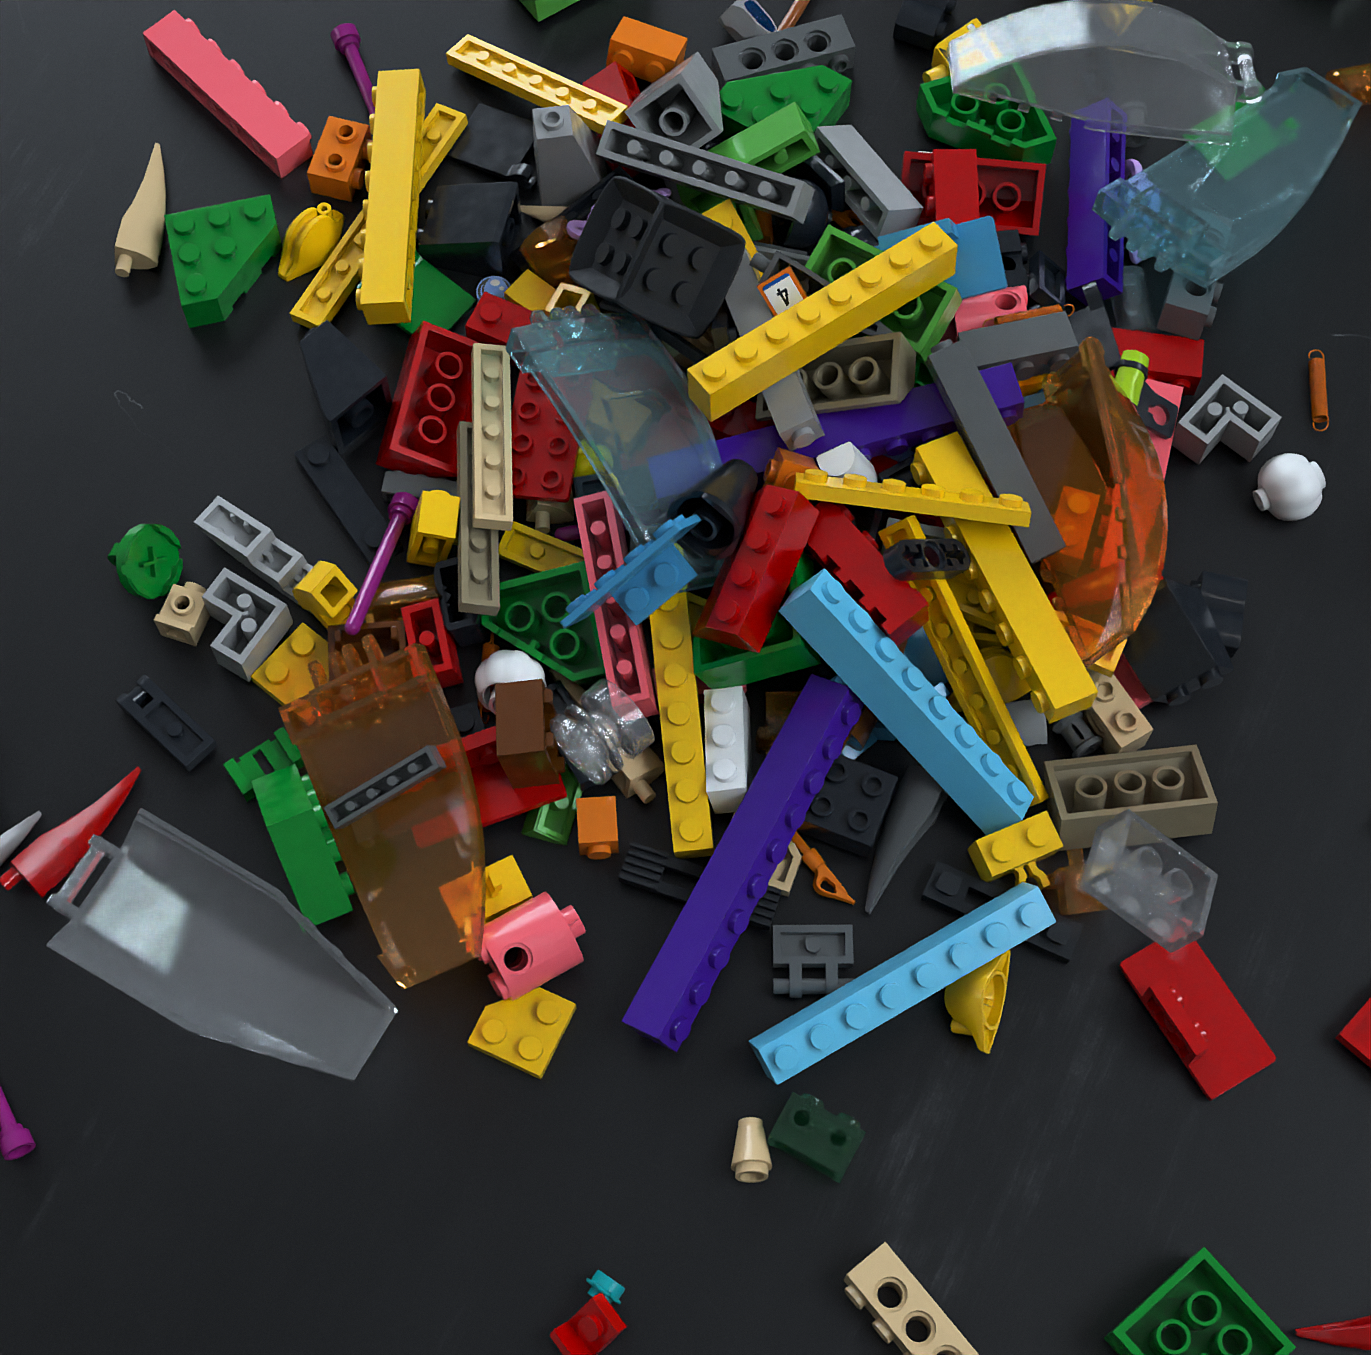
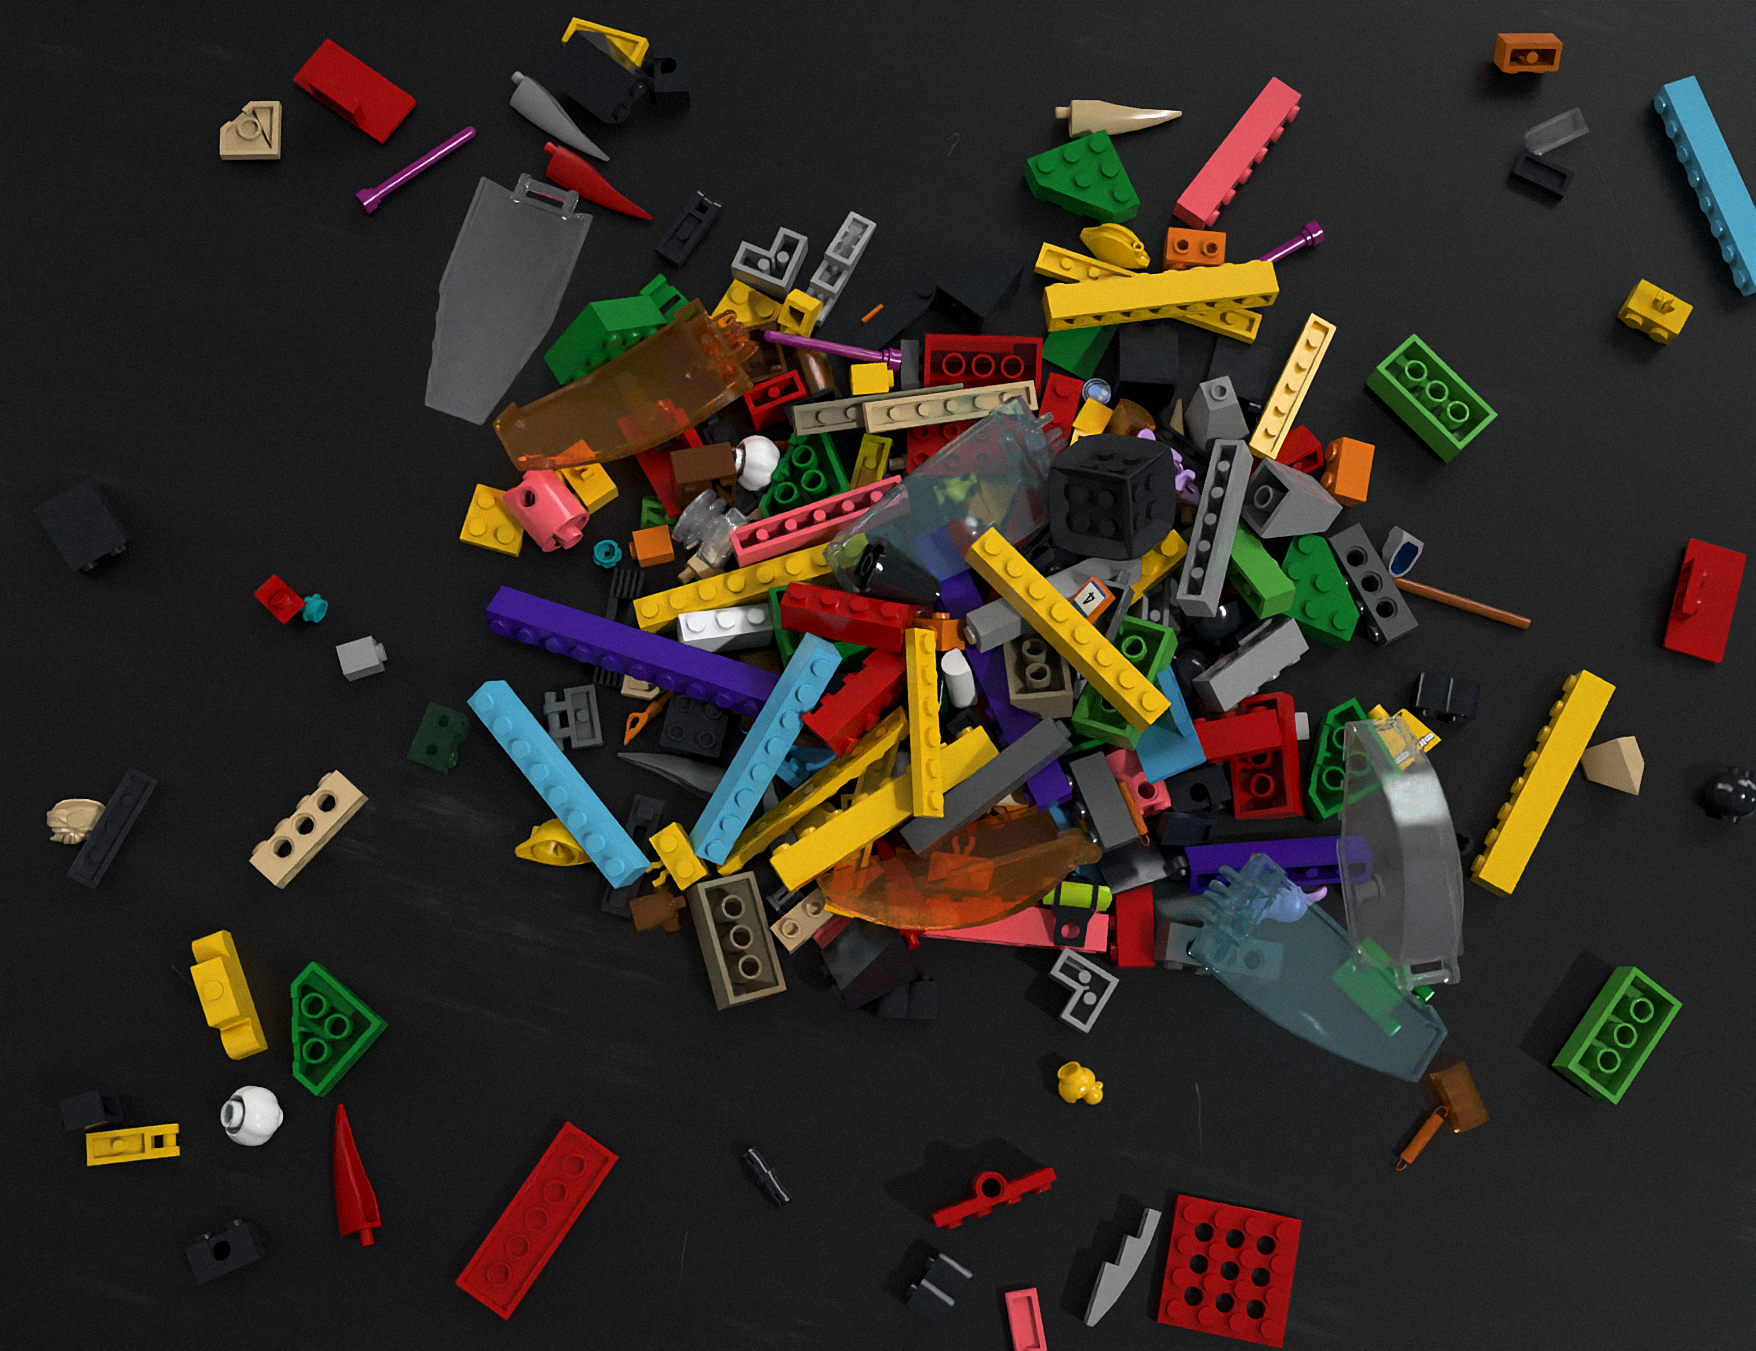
camera: 75 degrees right, 10 degrees up
(147, 560) = (809, 185): green tile -> none
(183, 624) = (768, 227): tan brick -> none
(334, 523) = (865, 319): none -> orange piece
(385, 787) = (646, 383): dark grey piece -> none
(599, 879) = (607, 546): none -> teal plate
(648, 579) = (818, 533): dark azure bracket -> none
(688, 1227) = (361, 658): none -> light grey brick
(751, 1153) = (420, 694): tan cone -> none
(945, 557) = (861, 734): black beam -> none
(1149, 881) = (659, 957): clear brick -> none
(1198, 1016) = (572, 1011): red bracket -> none
(1289, 487) = (1035, 1051): white plant -> none
(1318, 390) = (1136, 1072): orange piece -> none
(1330, 449) = (1079, 1083): none -> yellow animal

